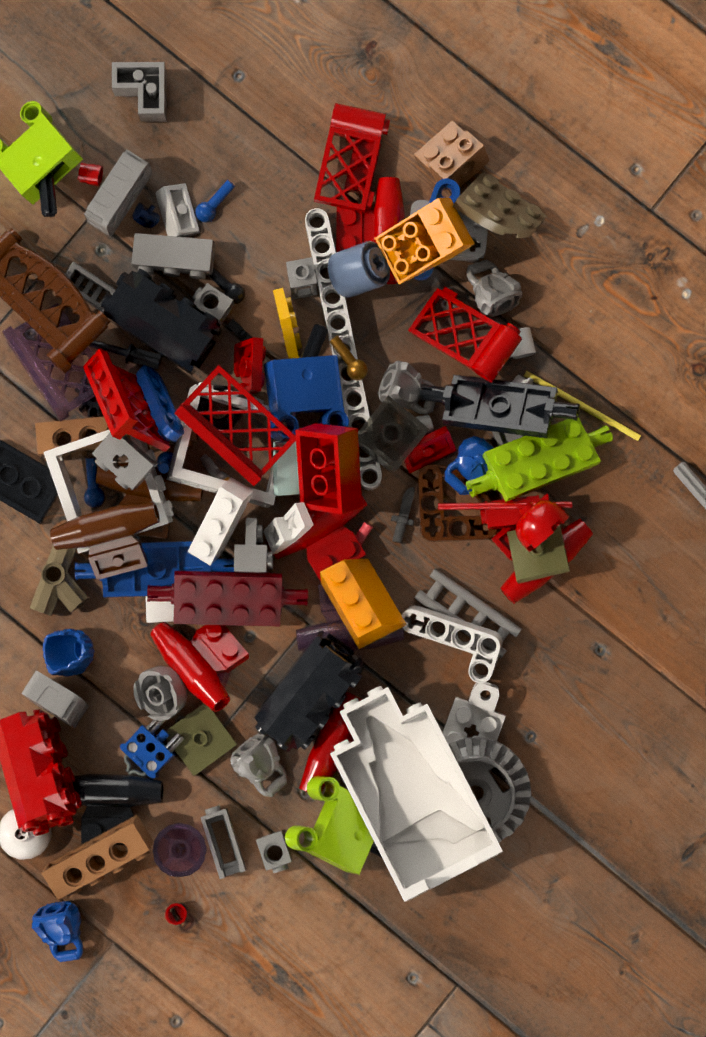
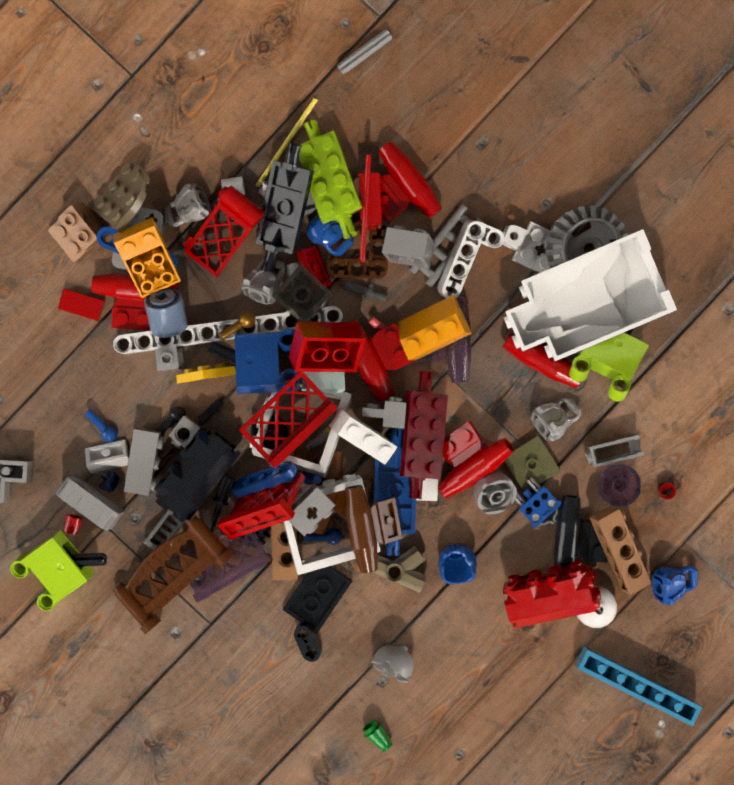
camera: 85 degrees left, 5 degrees up
(55, 699) = (495, 576): light grey axle -> none
(248, 363) = (237, 406): red plate -> none
(274, 839) = (615, 415): light grey brick -> none
(288, 529) = (372, 383): white slope -> none
(308, 692) = (502, 375): black brick -> none
(361, 126) = (46, 308): red piece -> none
(461, 563) = (408, 247): none -> light grey brick
(538, 522) = (383, 181): red cylinder -> none
(543, 561) = (403, 185): olive plate -> none

